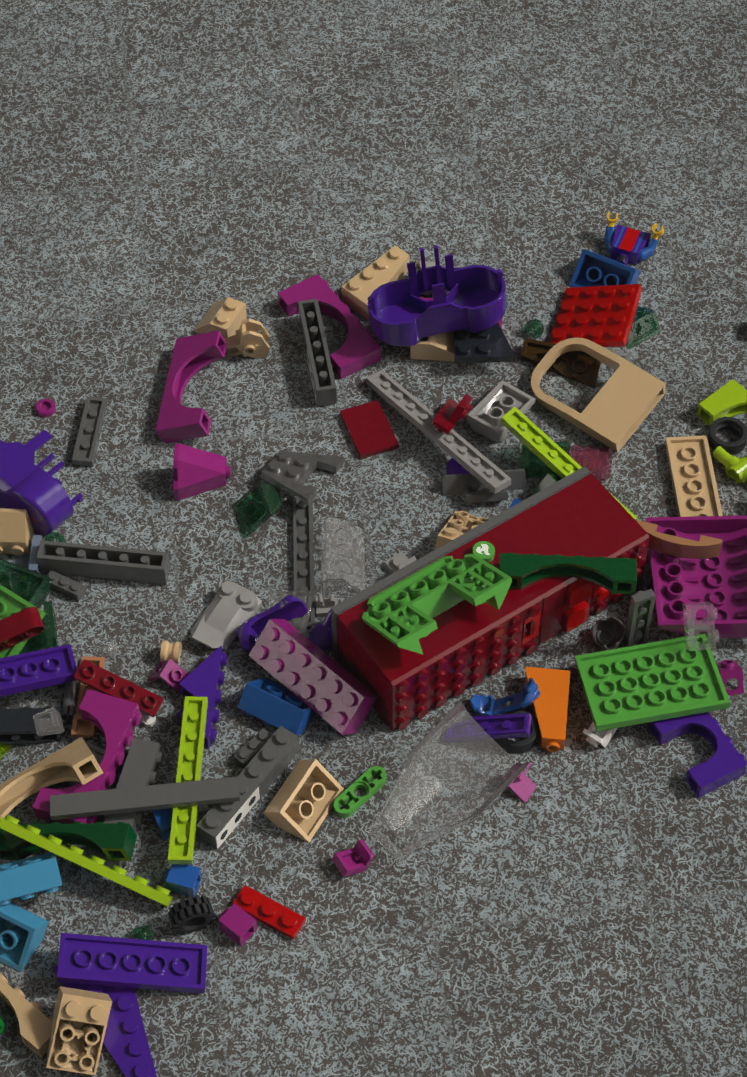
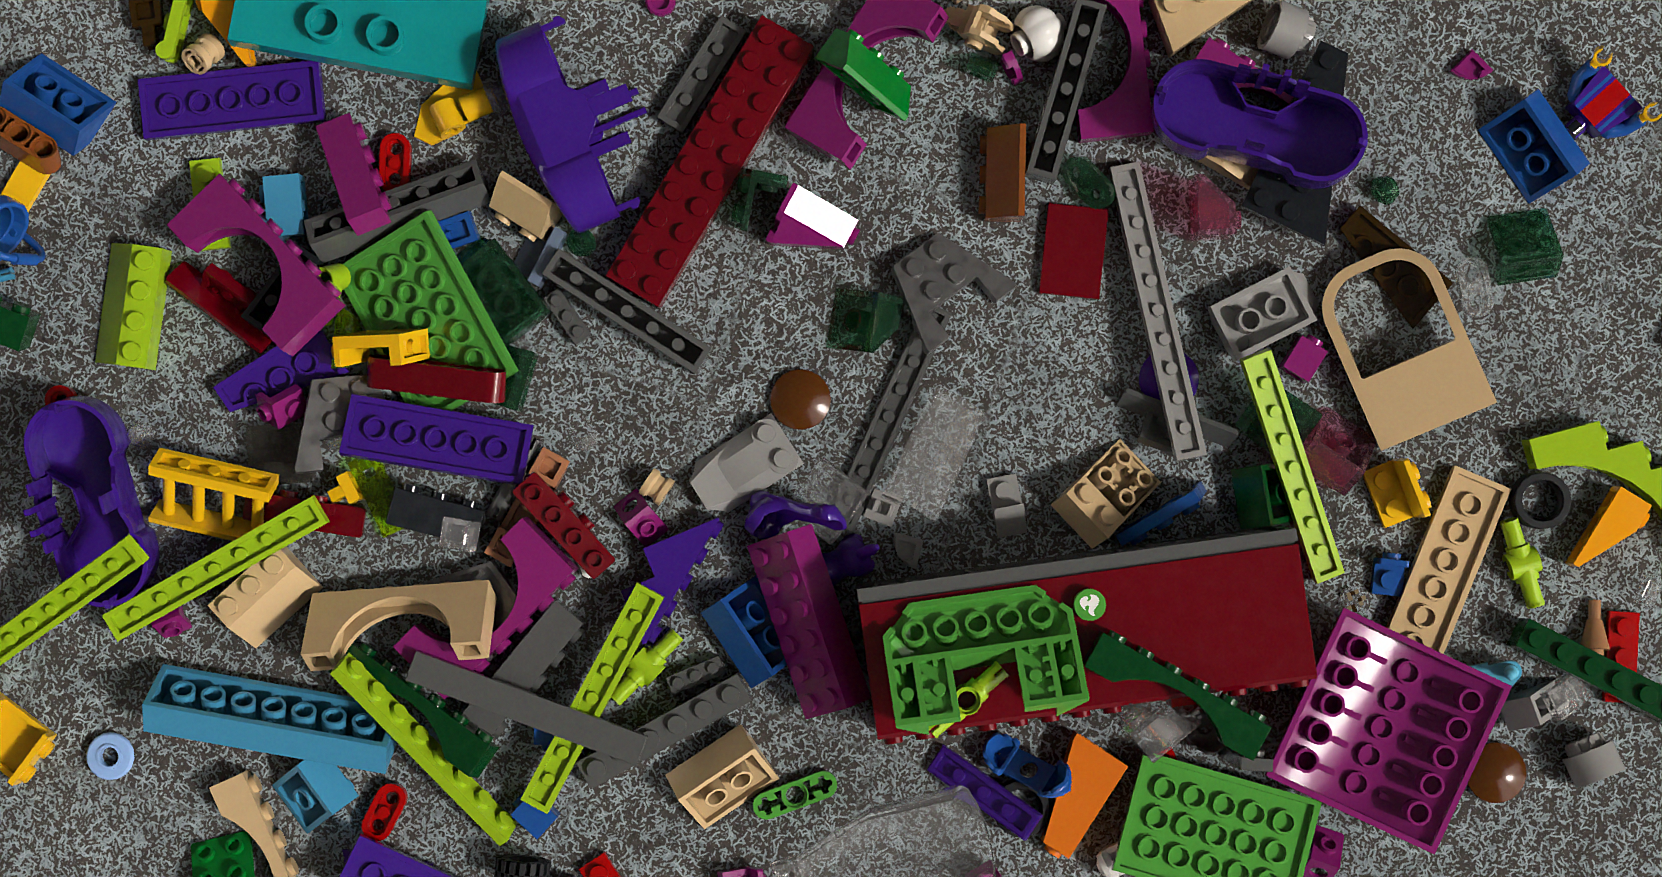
camera: 25 degrees right, 35 degrees up
(68, 926) = (385, 811): none -> red plate
(118, 465) = (711, 162): none -> dark red brick
(142, 933) = (456, 854): clear green plate -> none
(154, 461) = (746, 185): none -> clear green bracket
(190, 383) = (866, 73): none -> green slope
(217, 754) = (646, 666): none -> lime pin
(241, 569) = (800, 399): none -> reddish brown dish
(261, 364) = (982, 67): none -> clear green slope
(278, 356) = (1011, 68): none -> magenta tile
(284, 331) = (1038, 33): none -> white plant
(304, 402) = (1003, 173): none -> dark orange slope
(356, 390) = (1089, 180): none -> clear green plate
(438, 370) = (1211, 211): none -> clear pink slope
(438, 637) = (980, 688): none -> lime pin
(451, 414) = (1187, 303): dark red bracket -> none
(542, 419) = (1303, 358): none -> magenta brick
(546, 259) = (1471, 67): none -> magenta tile
(569, 627) = (1155, 727): none -> clear slope
(597, 314) = (1477, 218): red plate -> none
(642, 461) = (1397, 491): none -> yellow bracket
(663, 506) = (1388, 574): none -> blue bracket
(681, 547) = (1329, 649): medium nougat slope -> none
(694, 627) = (1314, 810): clear brick -> none

